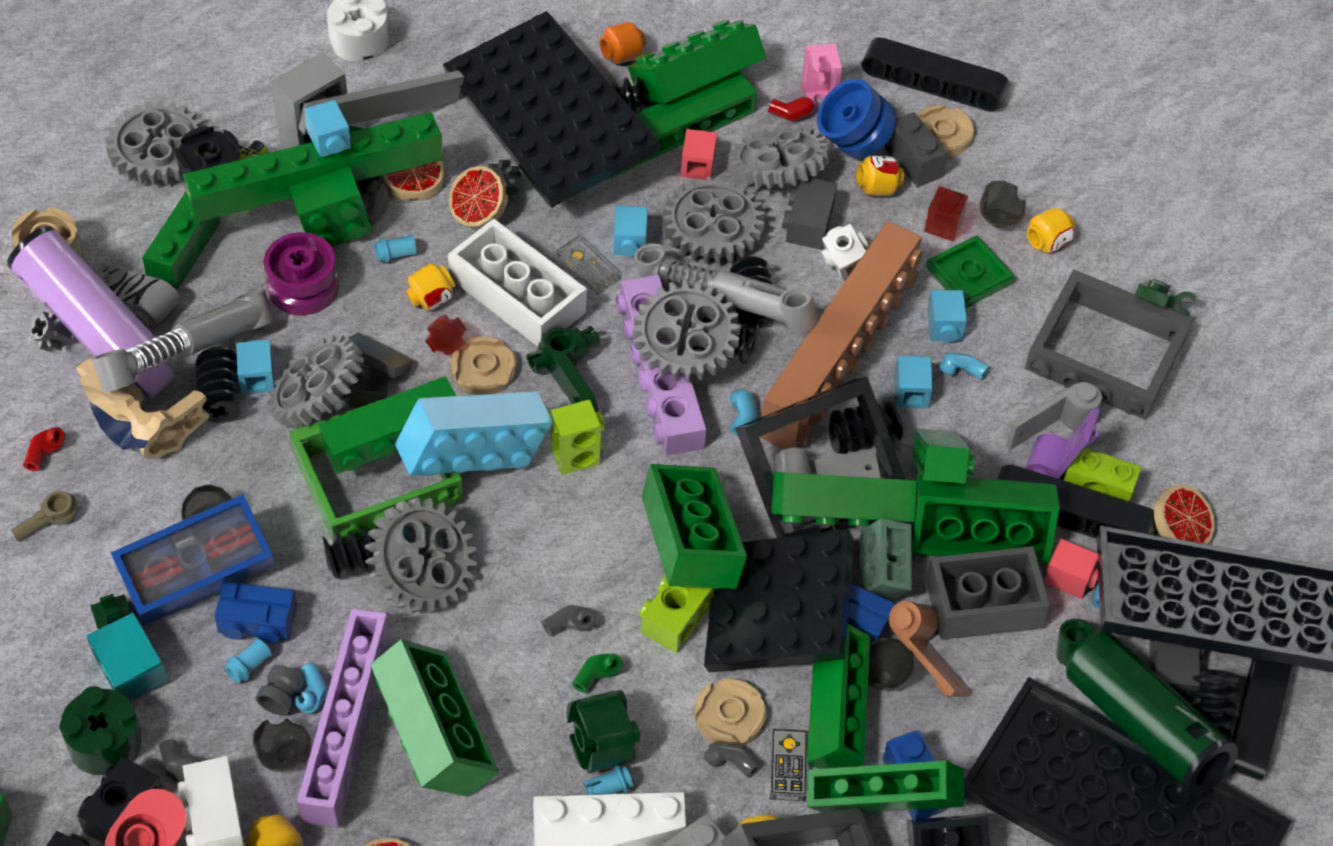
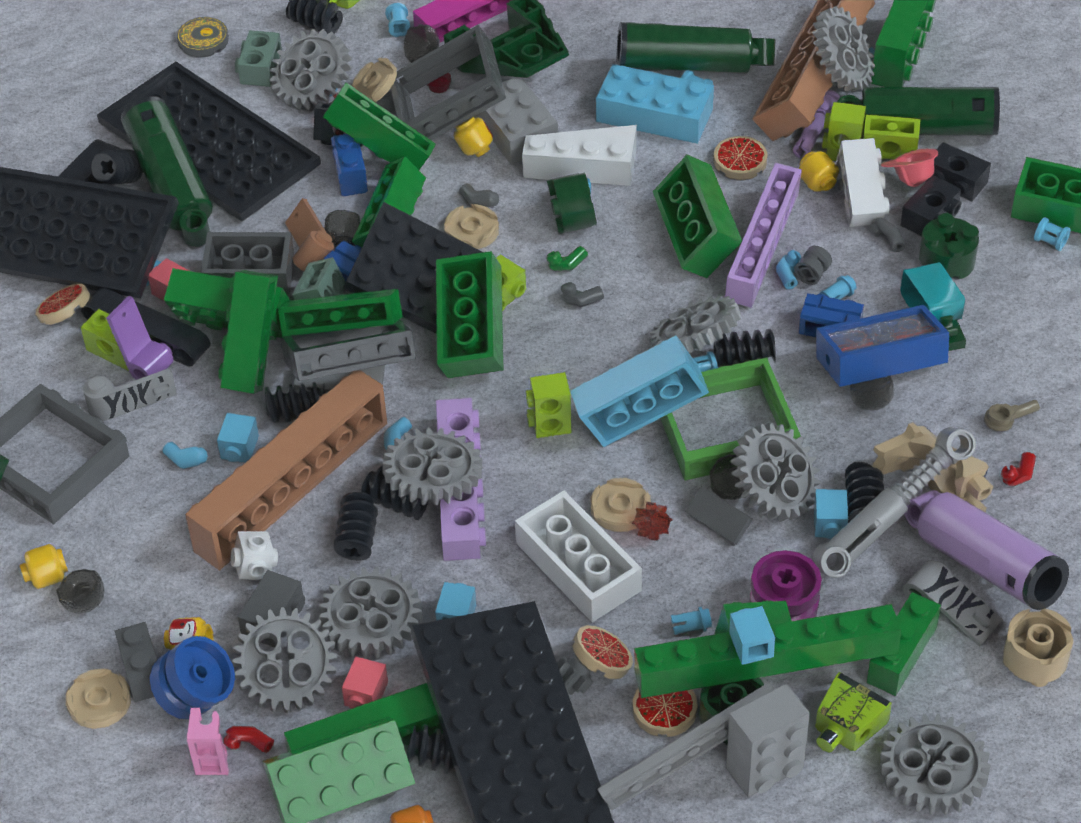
camera: 165 degrees left, 5 degrees down
(204, 139) = (872, 720): black plate -> none
(282, 745) = (812, 226): clear smoke hair -> none
(374, 429) = (709, 415): green brick -> none
(430, 286) = (662, 571): yellow head -> none
(560, 354) = (547, 484): dark green piece -> none
(589, 264) = (500, 586): clear tile -> none
(788, 764) = (438, 190): tile -> none
(790, 306) = (383, 502): light grey piece -> none
(935, 74) = (80, 756): black beam -> none
(946, 213) = (139, 588): clear red brick -> none
(946, 315) = (181, 491): medium azure brick -> none
(971, 269) = (139, 544): green tile -> none

